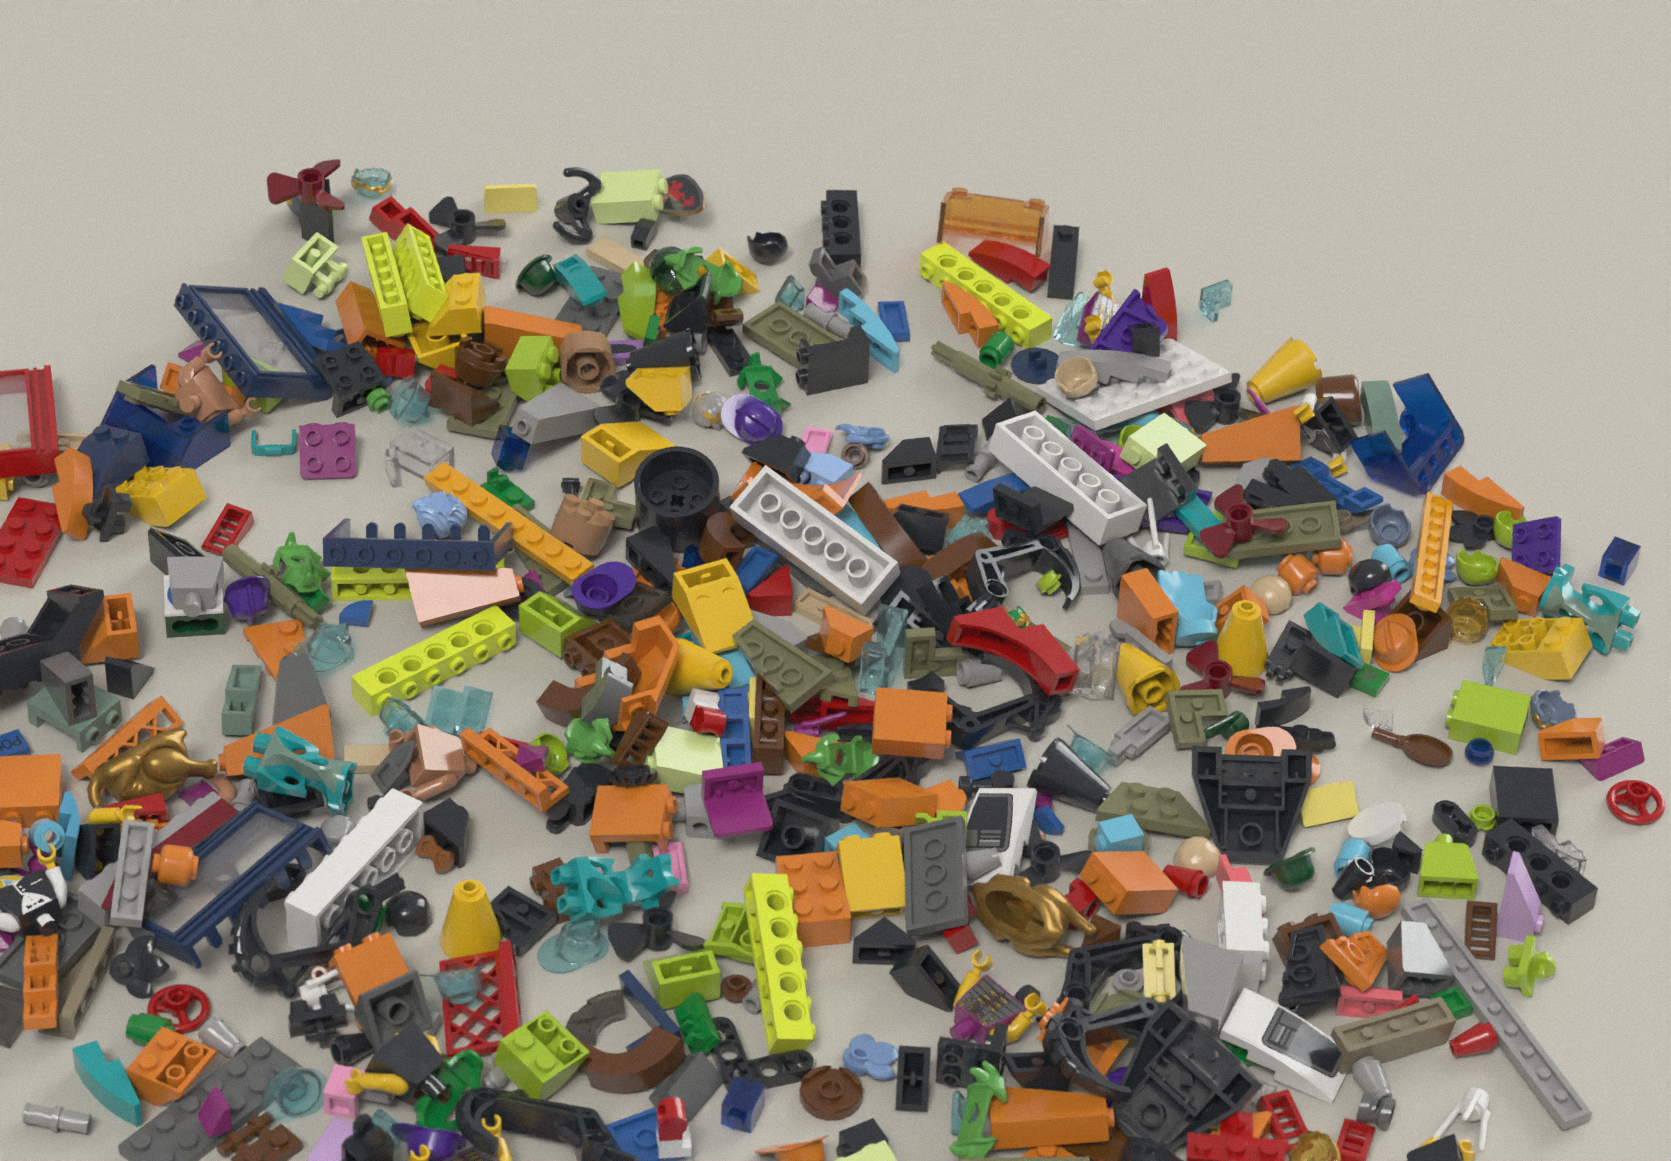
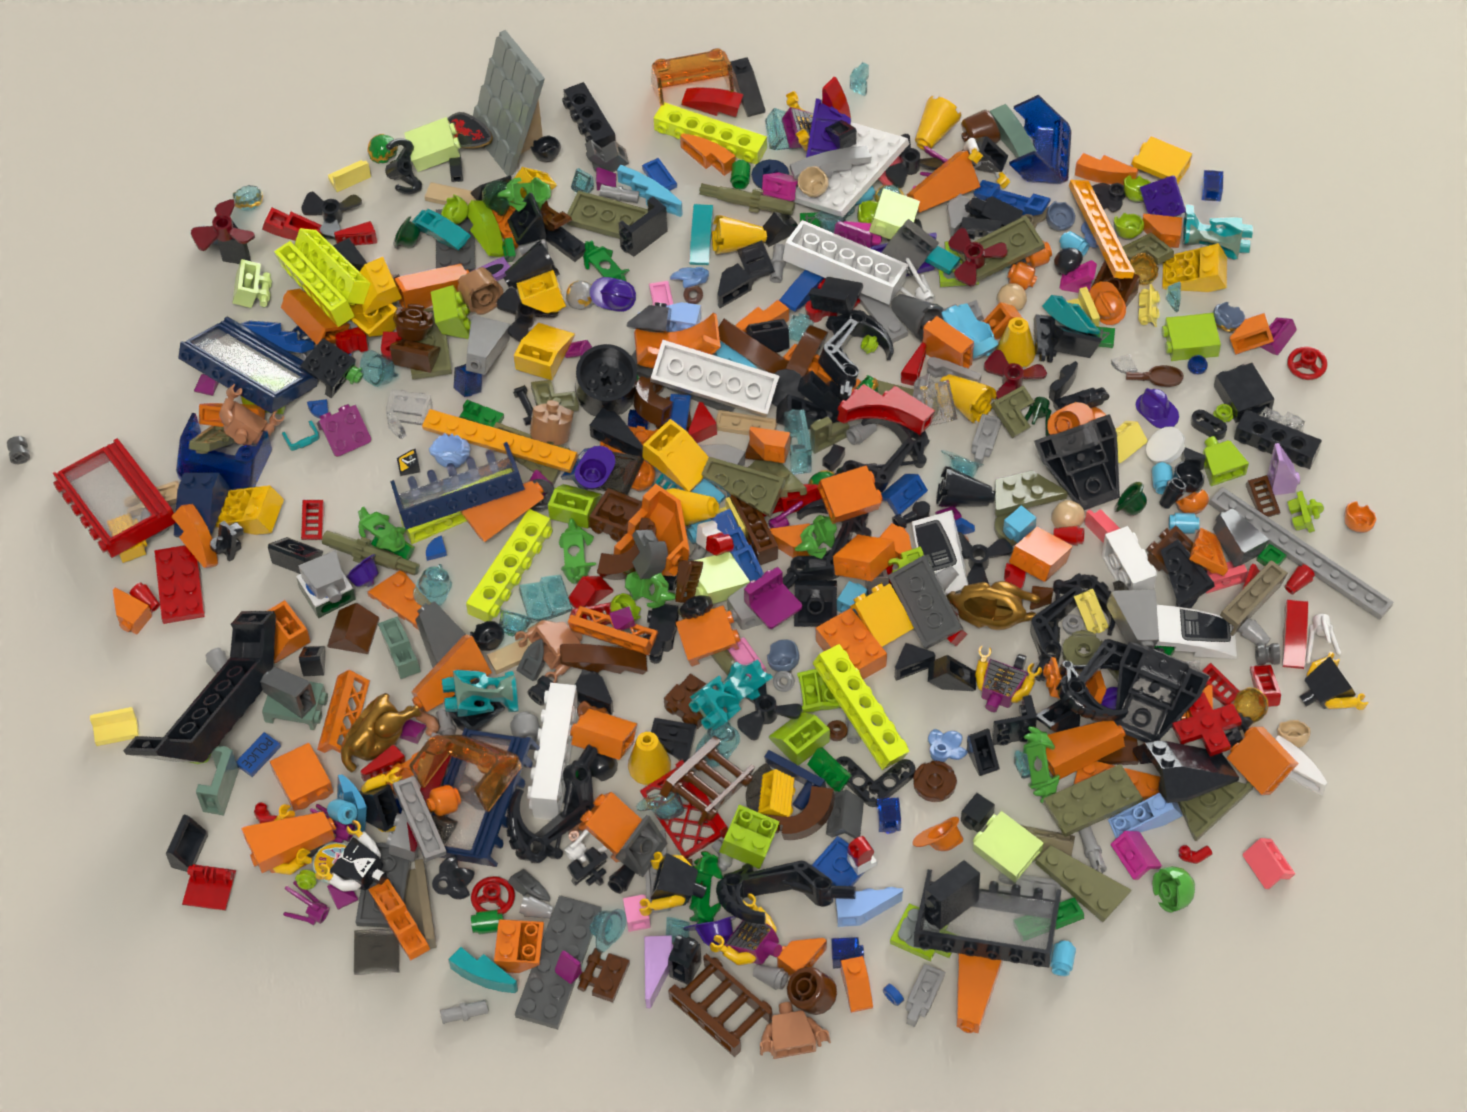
camera: 20 degrees left, 15 degrees up
(201, 662) = (354, 629): none -> reddish brown slope
(227, 1006) = (527, 884): none -> dark grey plate
(250, 840) = (496, 764): none -> clear orange windscreen
(311, 416) = (318, 407): none -> blue tile
(357, 724) = (488, 635): none -> black hair
(385, 513) = (408, 463): none -> slope
(426, 873) = (605, 732): none -> orange brick
(483, 794) = (602, 657): none -> reddish brown slope
(517, 691) = (575, 566): none -> bright green piece
(518, 721) = (589, 591): none -> red slope
(530, 947) = (698, 762): none -> reddish brown fence
(562, 186) = (377, 149): none -> green hair
(610, 1023) = (776, 794): none -> yellow brick
(611, 267) = (455, 209): none -> lime hair
(694, 904) = (777, 681): none -> light grey plate
(718, 878) = (783, 655): none -> sand blue hair
(740, 173) = (510, 103): none -> light grey piece
(905, 395) = (701, 234): none -> teal slope
(946, 405) = (734, 234): none -> yellow cone
(1035, 375) = (779, 185): none -> dark pink panel
(1093, 620) = (913, 368): none -> red slope
(1395, 781) = (1157, 408): none -> dark purple piece
(1429, 1099) = (1295, 634): none -> red slope
(1452, 665) = (1151, 312): none -> light yellow hinge
(1580, 515) = (1162, 159): none -> yellow panel
(1600, 999) = (1359, 518): none -> orange hair

